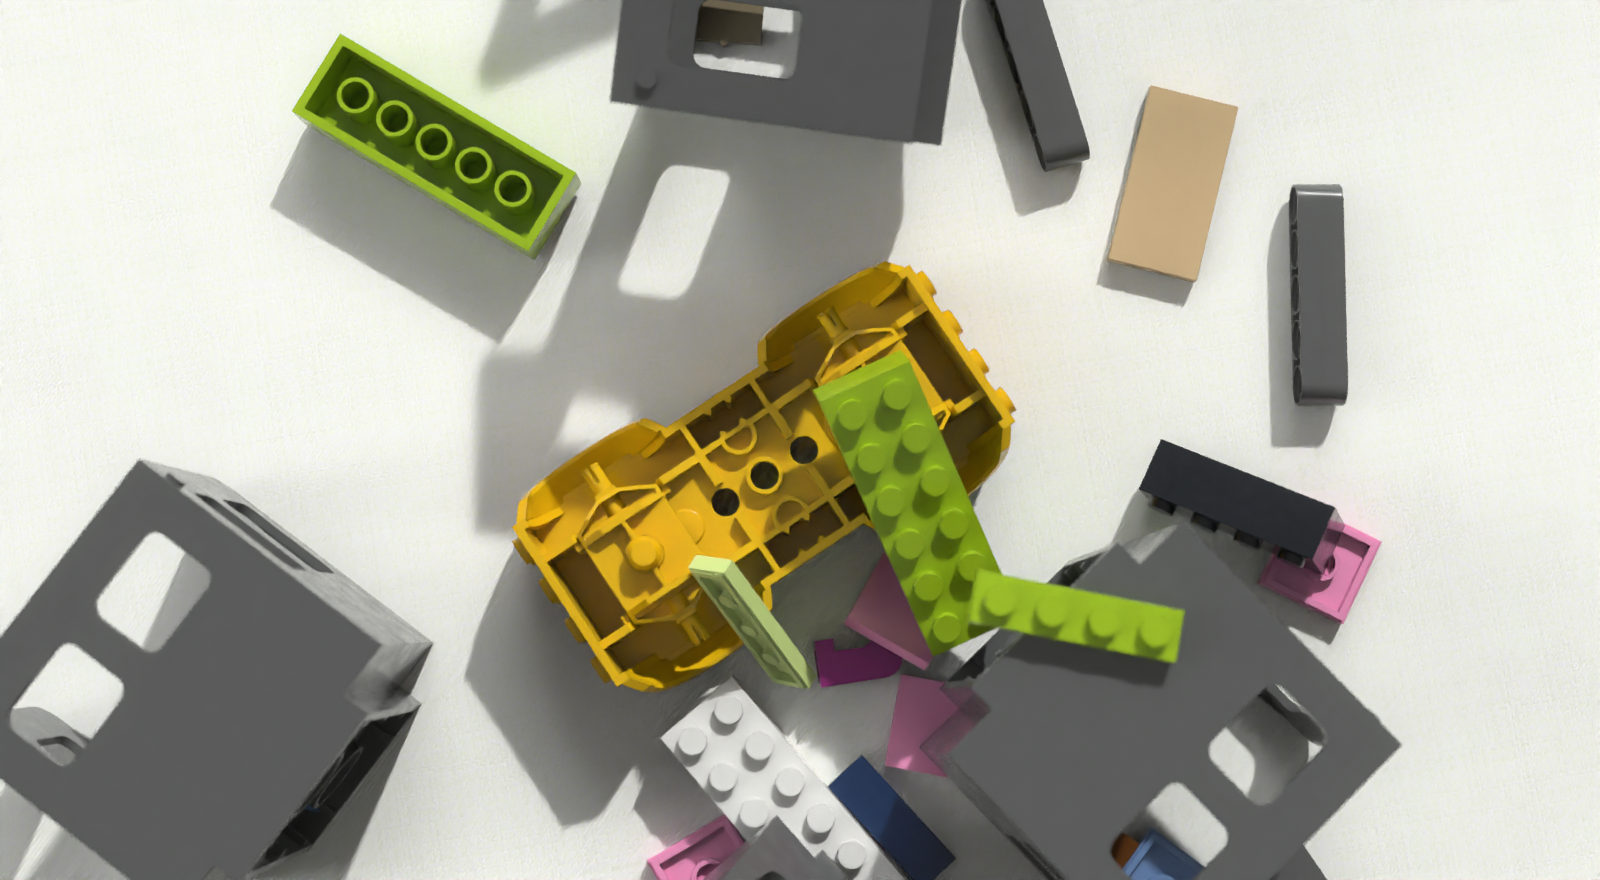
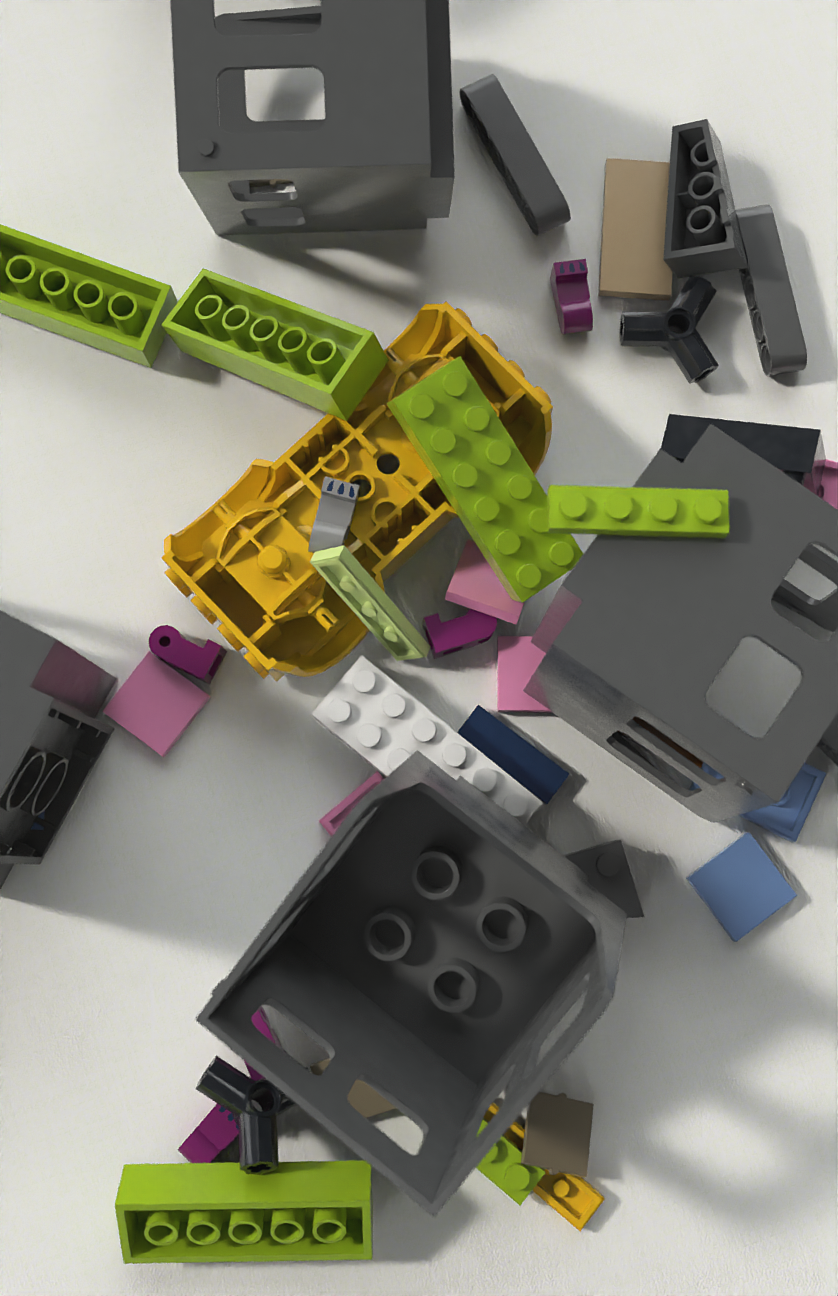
camera: 10 degrees left, 5 degrees down
(476, 684) = (156, 704): none -> bright pink tile
(509, 624) = (177, 651): none -> magenta leg
(692, 274) = (276, 343): none -> lime brick
(725, 515) = (333, 514): none -> light grey leg
(1071, 263) = (572, 296): none -> magenta leg
(1212, 305) = (686, 312): none -> black piece
(1253, 177) = (701, 212): none -> dark grey wedge

